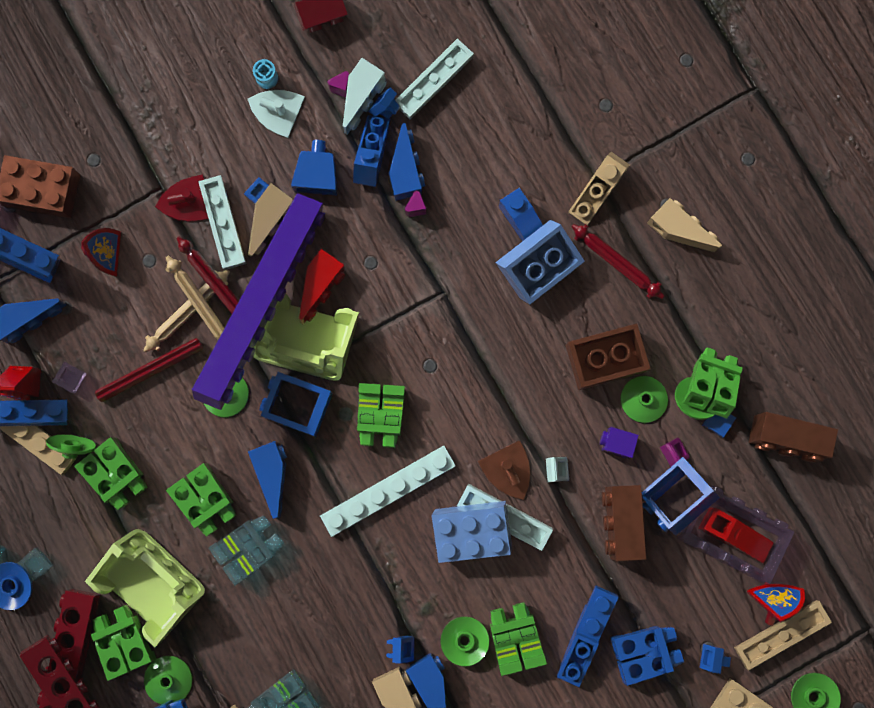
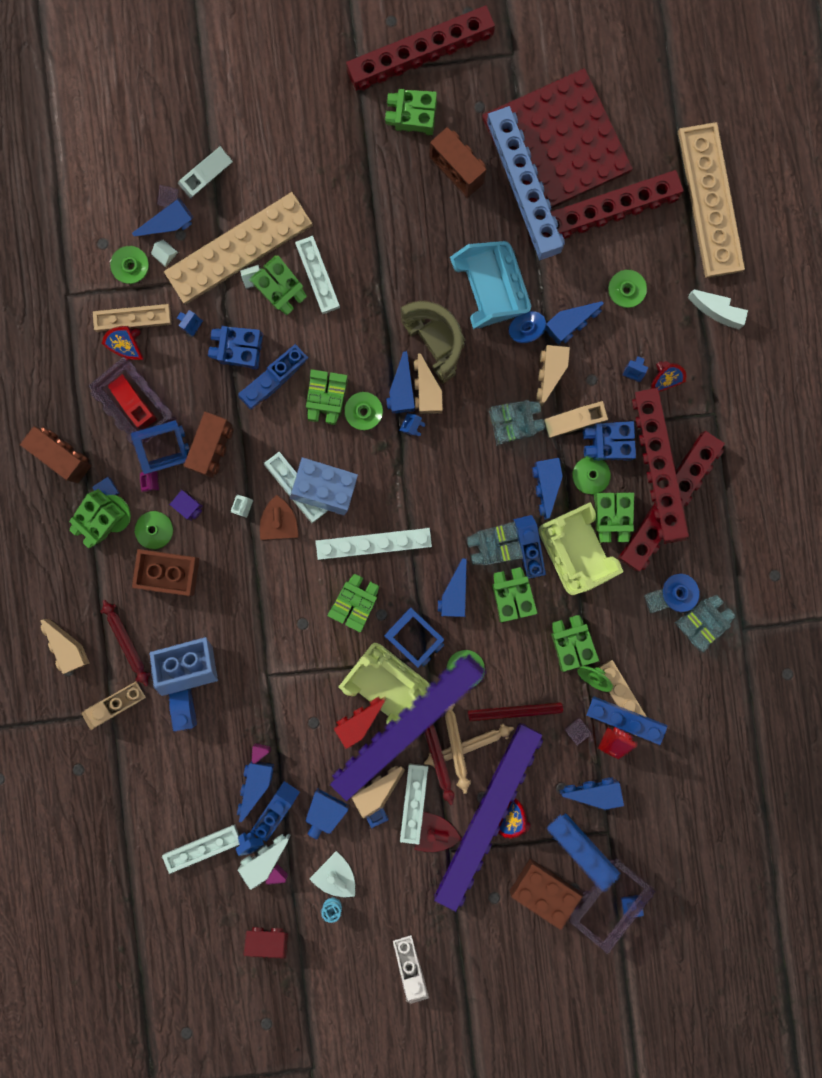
camera: 160 degrees left, 5 degrees up
(133, 244) = (488, 816): none -> dark purple brick
(154, 48) = (410, 970): none -> white slope
(205, 566) = (530, 546): none -> blue slope
(214, 652) = (549, 479): none -> blue slope

